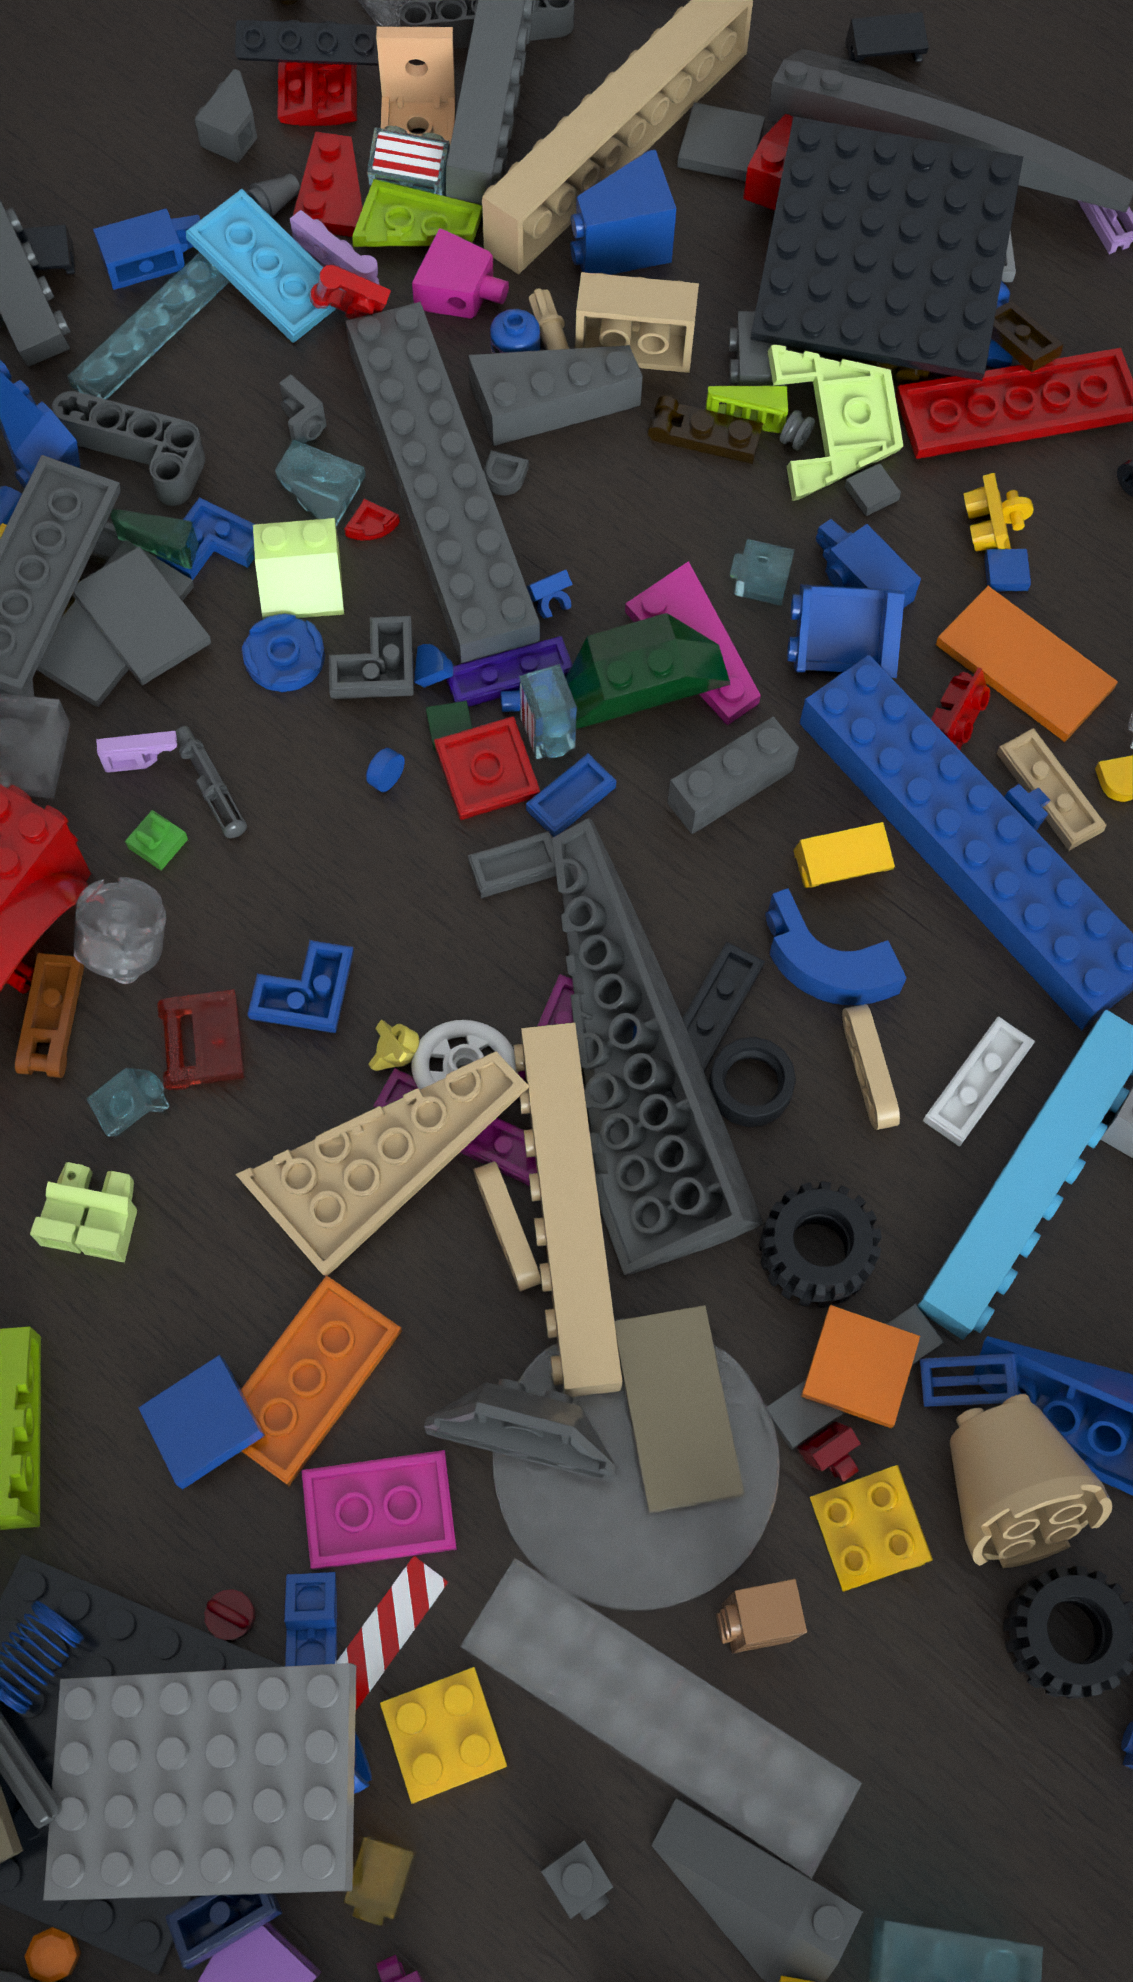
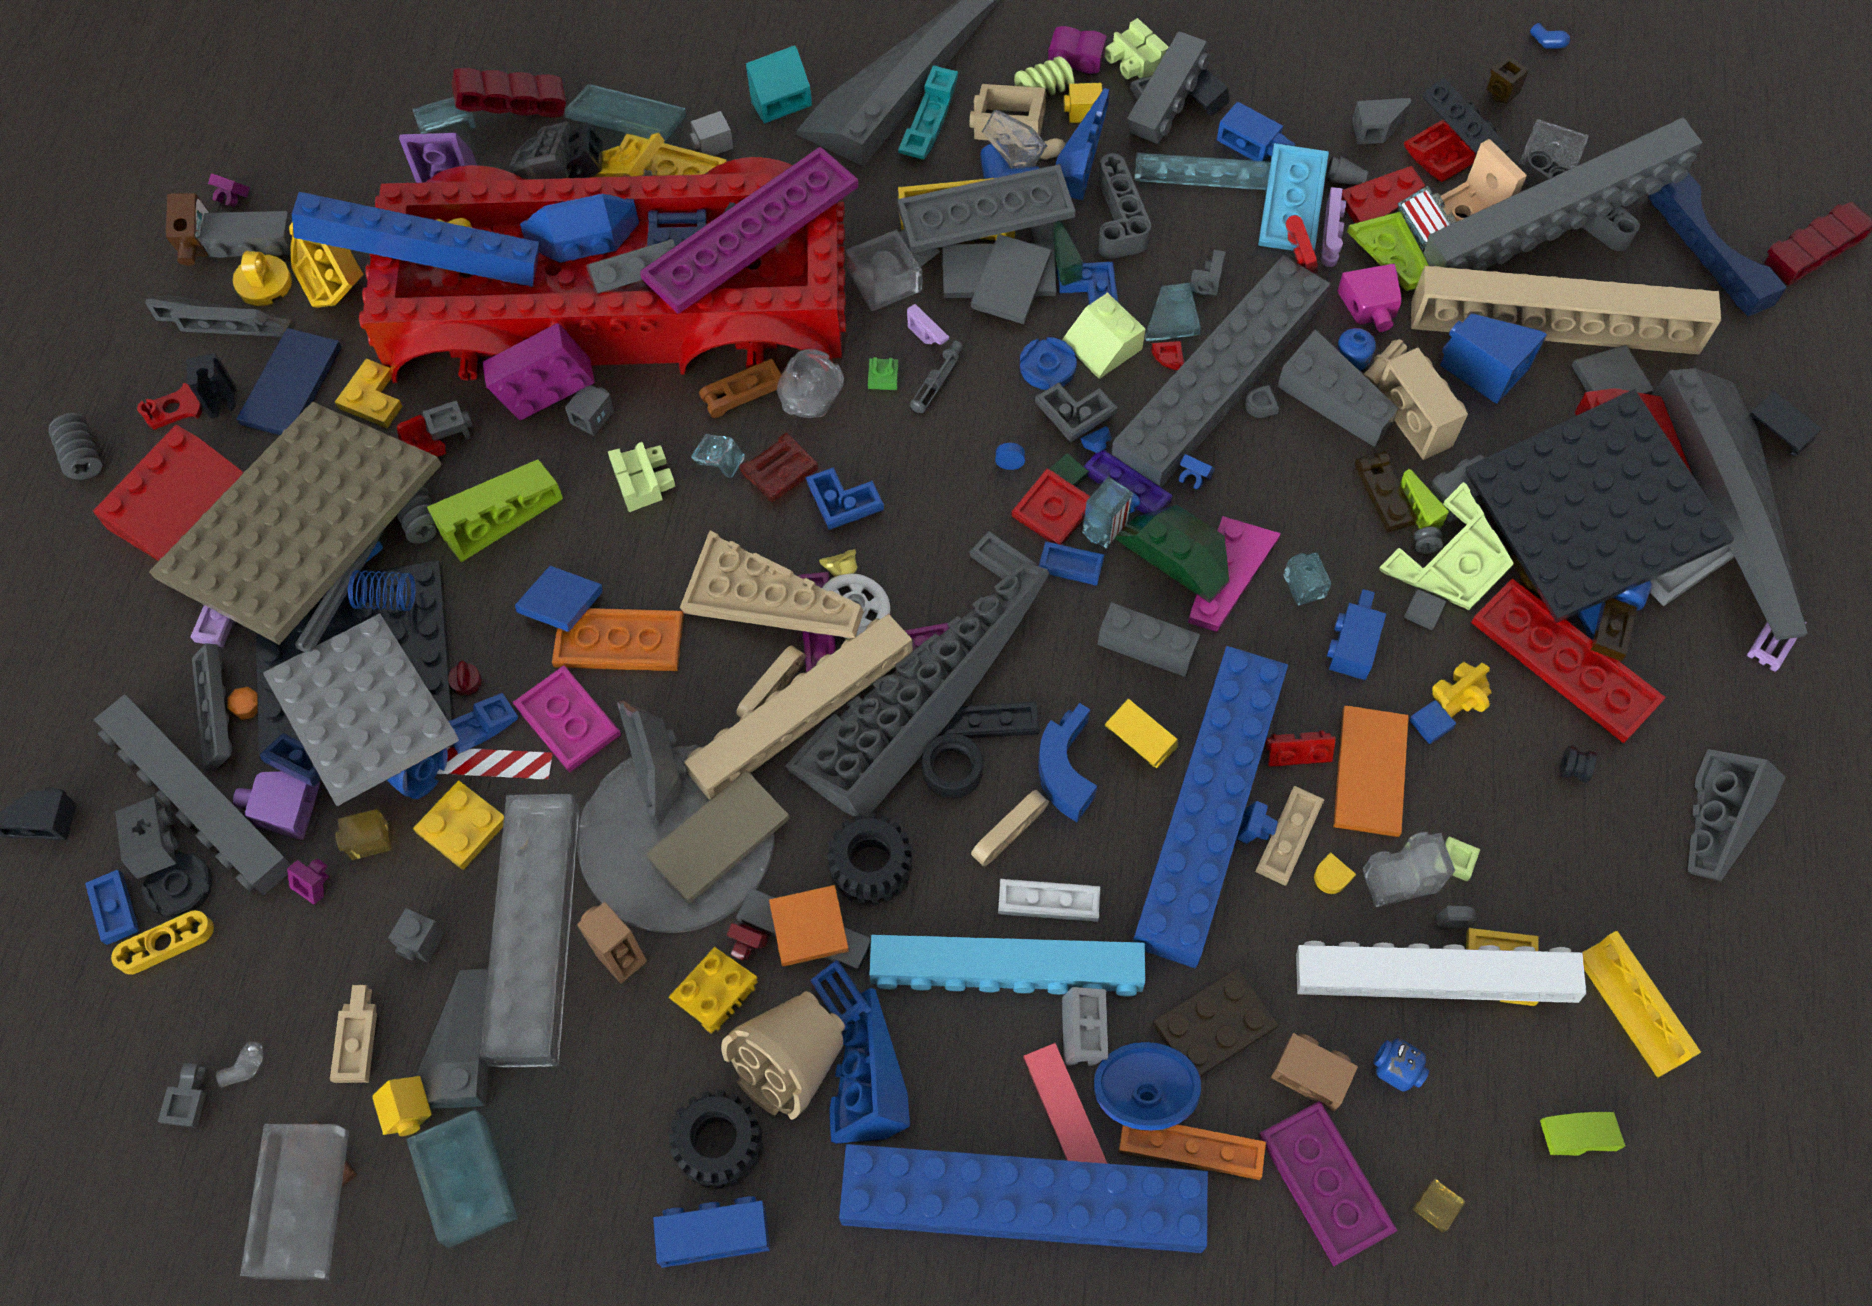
camera: 60 degrees right, 5 degrees down
(844, 626) = (1300, 639): blue panel -> none

